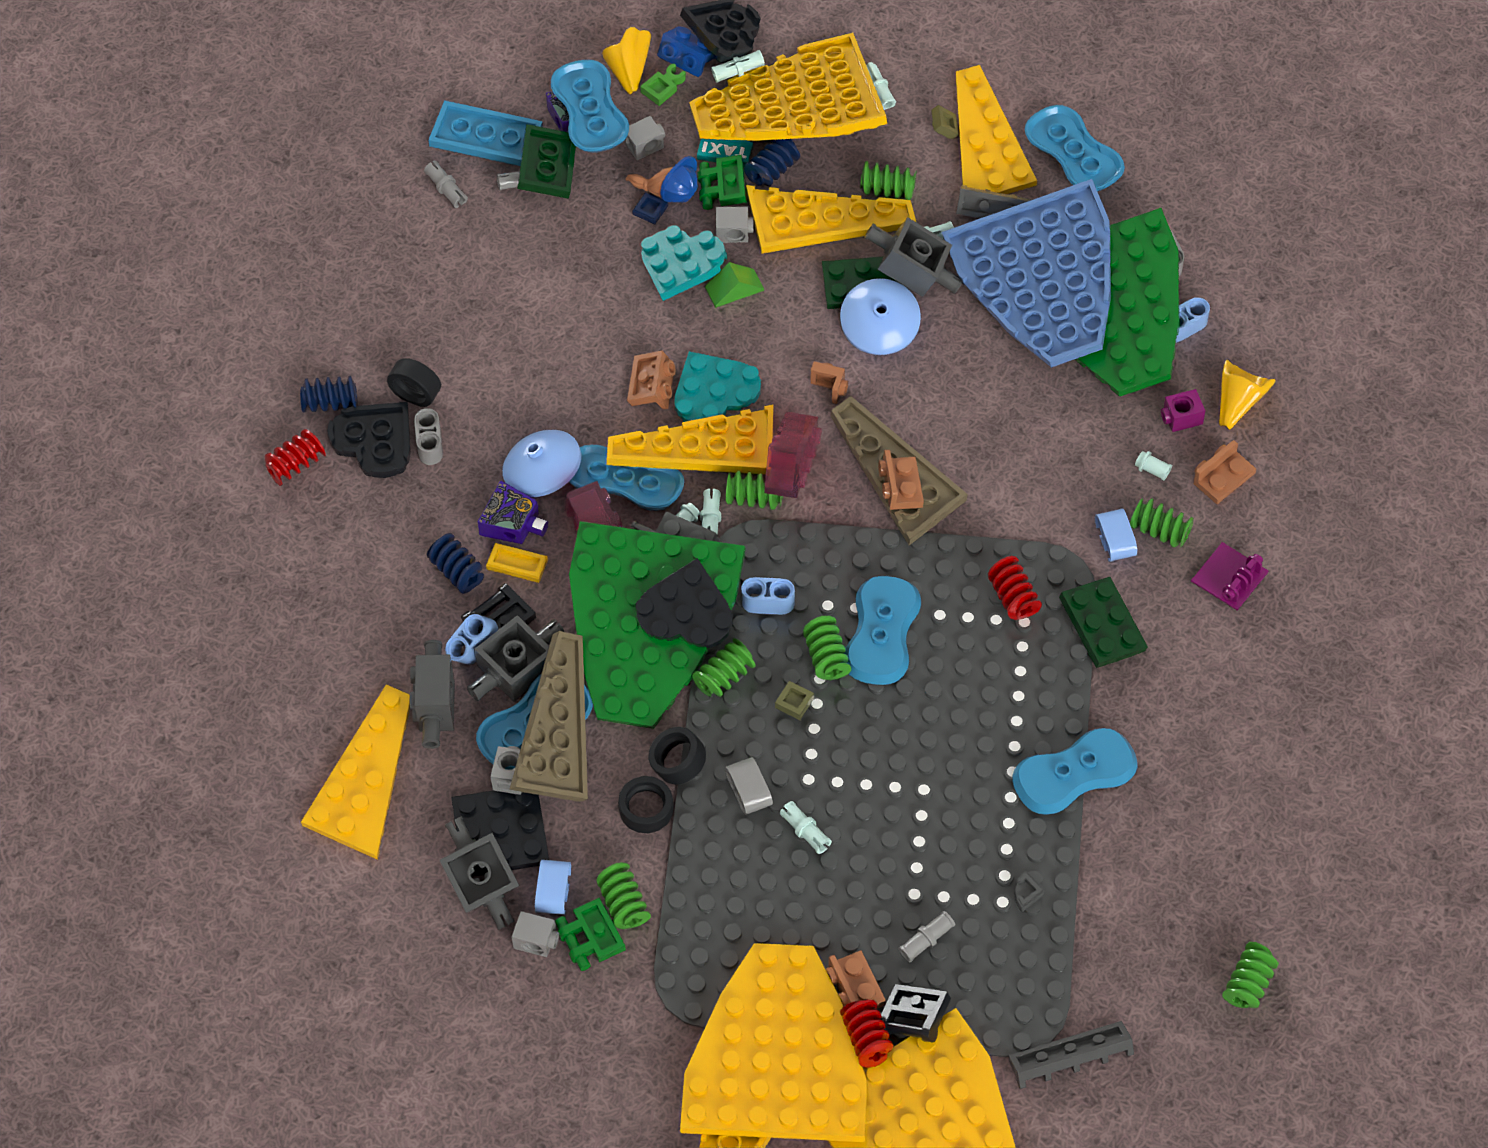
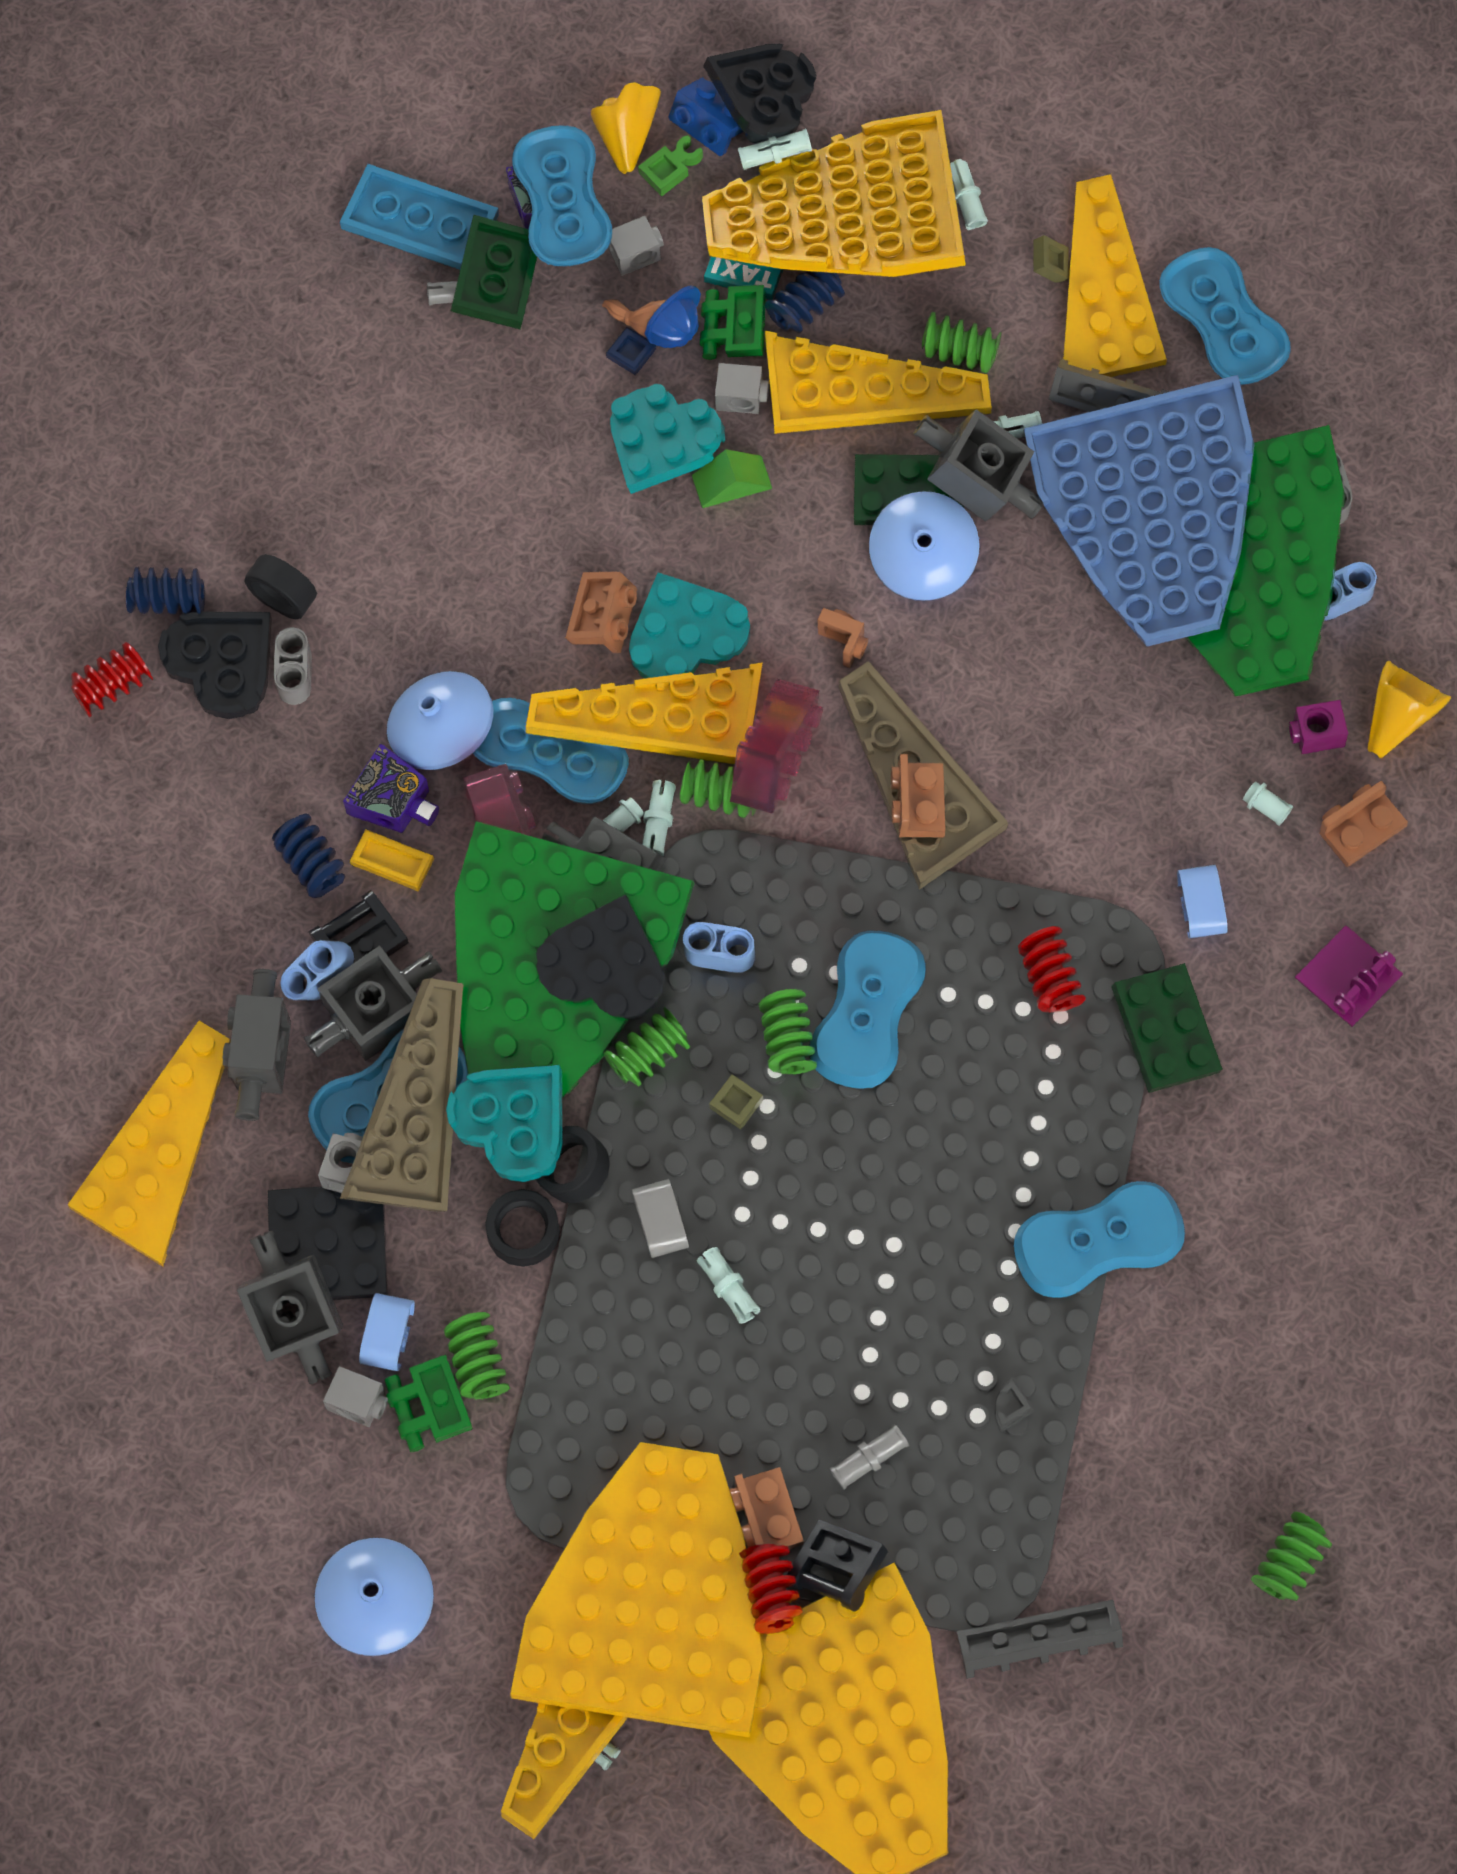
camera: 10 degrees right, 10 degrees up
(445, 184) = (356, 289): light grey pin -> none
(570, 1092) = (378, 1622): none -> light blue dish
(631, 725) = (512, 1117): none -> teal plate
(1161, 523) = (1265, 891): bright green piece -> none

